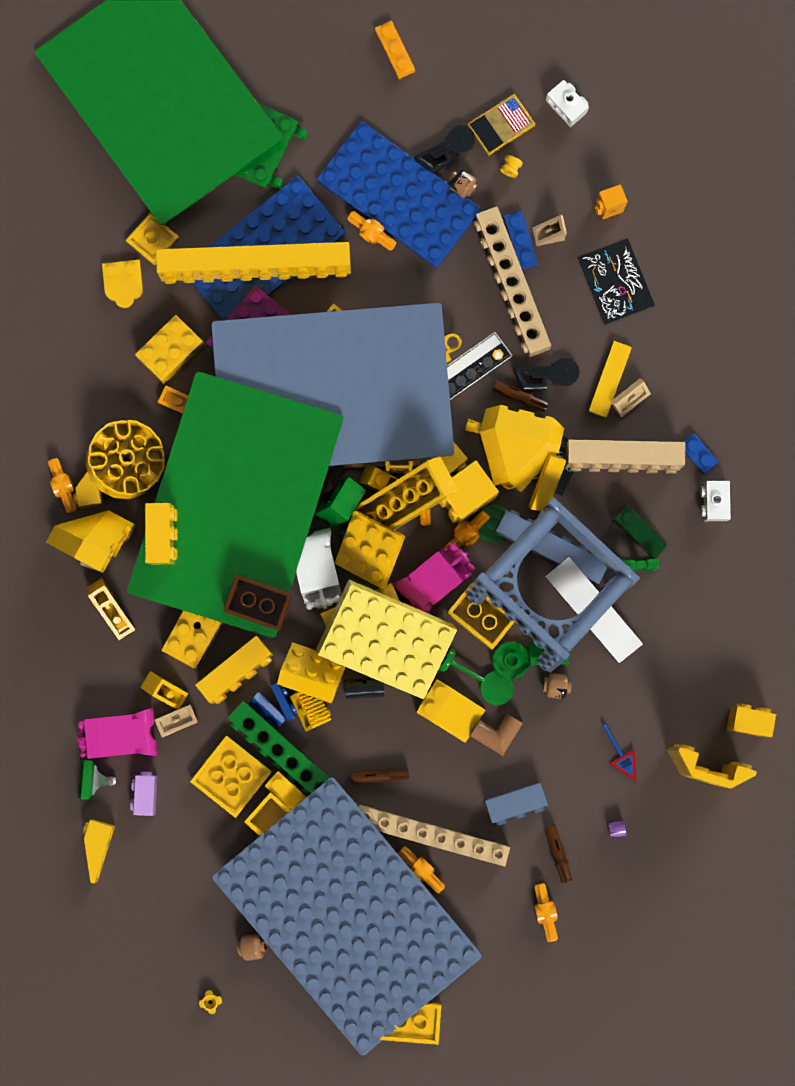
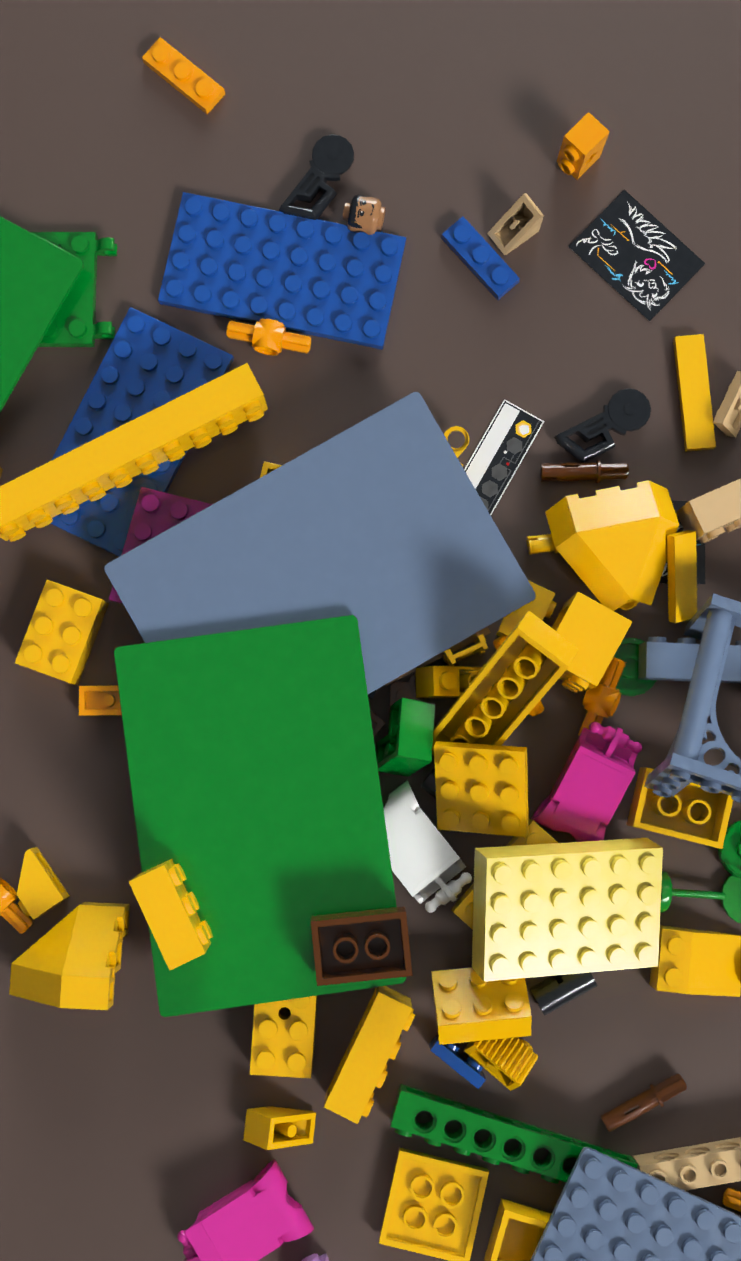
camera: 25 degrees left, 0 degrees up
(109, 449) = (51, 795): yellow brick -> none
(109, 608) = (145, 1044): yellow slope -> none
(176, 721) = (317, 1162): tan plate -> none
(272, 715) = (452, 1088): blue plate -> none
(285, 790) = (523, 1191): yellow slope -> none
(493, 219) = (431, 244): tan brick -> none
(501, 124) = (378, 111): tile -> none
(511, 166) = (419, 161): yellow wheel -> none
(567, 103) = (455, 41): white brick -> none

